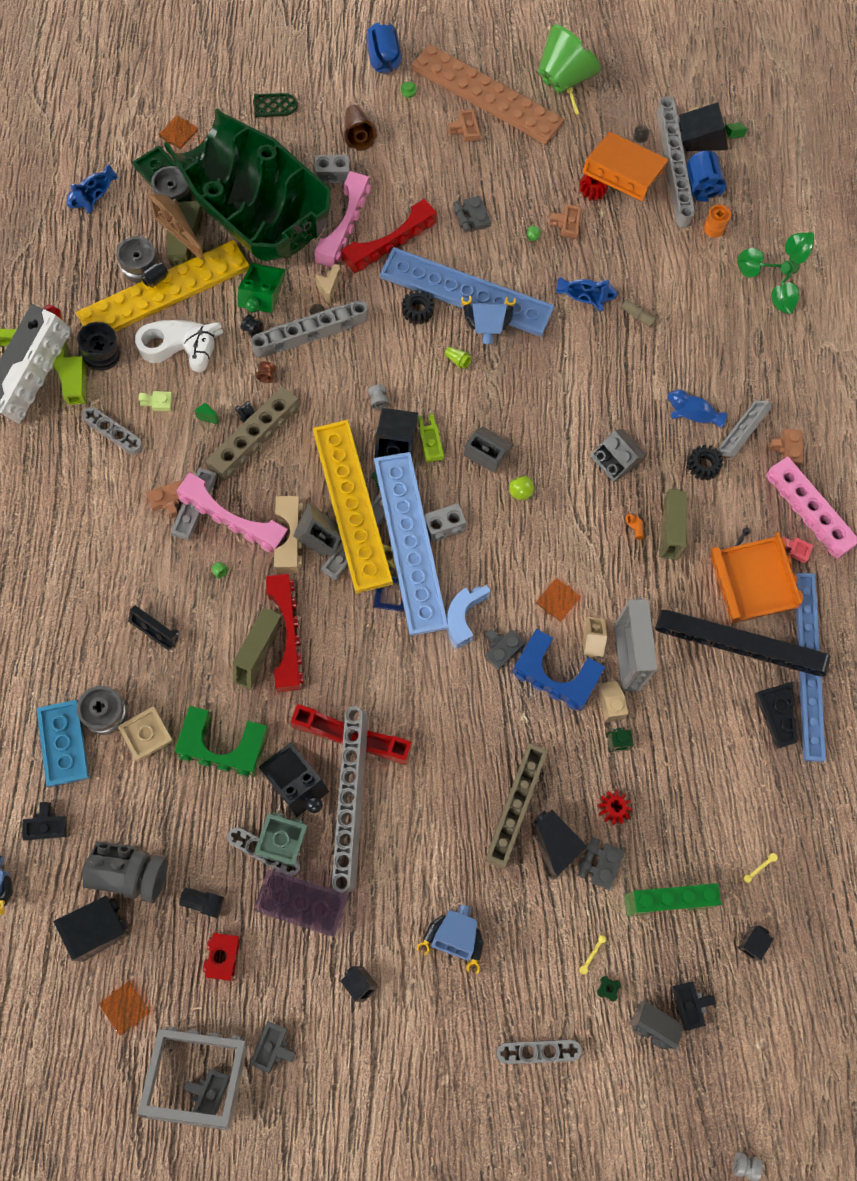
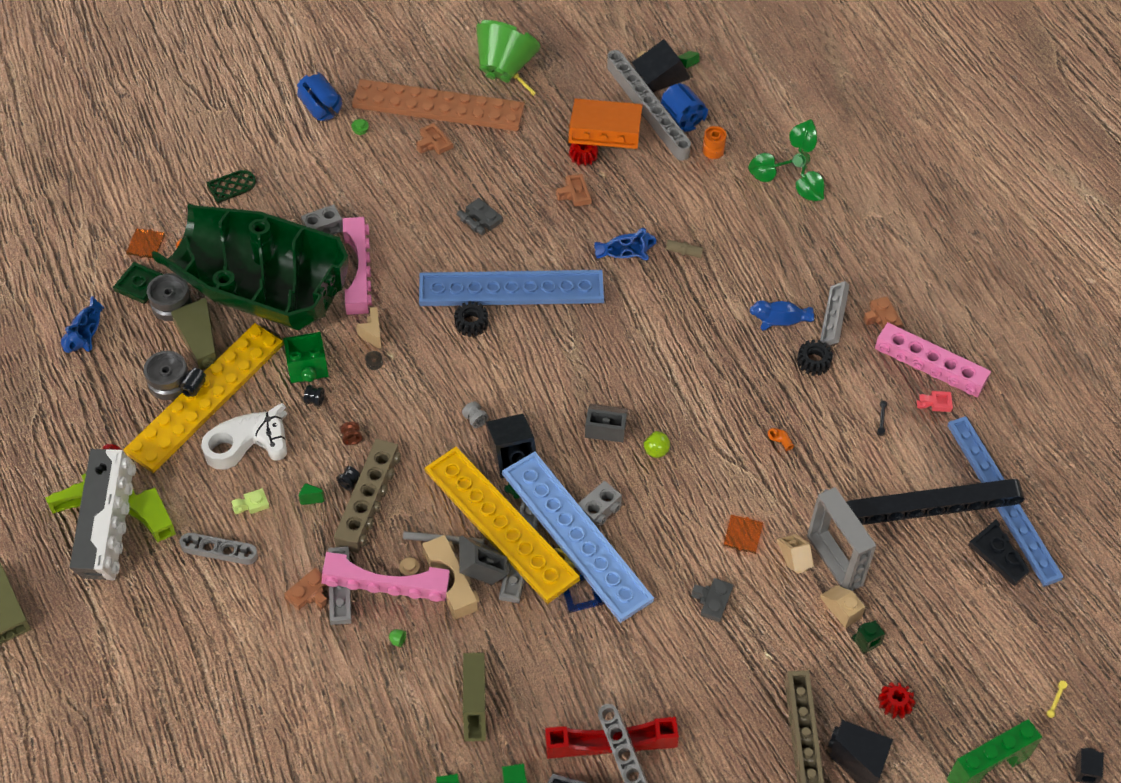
camera: 20 degrees left, 15 degrees down
(99, 346) = (168, 470): black wheel -> none
(153, 628) = (357, 720): black hinge -> none
(169, 215) = (189, 323): medium nougat wedge -> none
(258, 511) = (409, 567): none -> tan plate
(287, 491) = (427, 537): none -> light grey bar
(287, 674) = (470, 633): red arch -> none
(309, 328) = (374, 377): light grey beam -> none
(359, 129) = (331, 177): reddish brown cone -> none
(360, 255) = (390, 292): red arch -> none
(430, 440) = (546, 435): lime hinge -> none
(457, 628) = (665, 599): light blue arch -> none
(458, 357) = (535, 349): lime cone -> none
(488, 317) = (545, 302): medium blue torso -> none
(530, 669) = (752, 607): blue arch -> none
(533, 233) = (548, 213): bright green hinge -> none
(607, 864) = (917, 759): dark grey plate -> none
(618, 454) = (731, 381): dark grey slope -> none
(641, 138) = (603, 95): clear smoke bush -> none
(673, 524) = (816, 423): olive slope -> none
(756, 579) = (916, 441): orange panel -> none

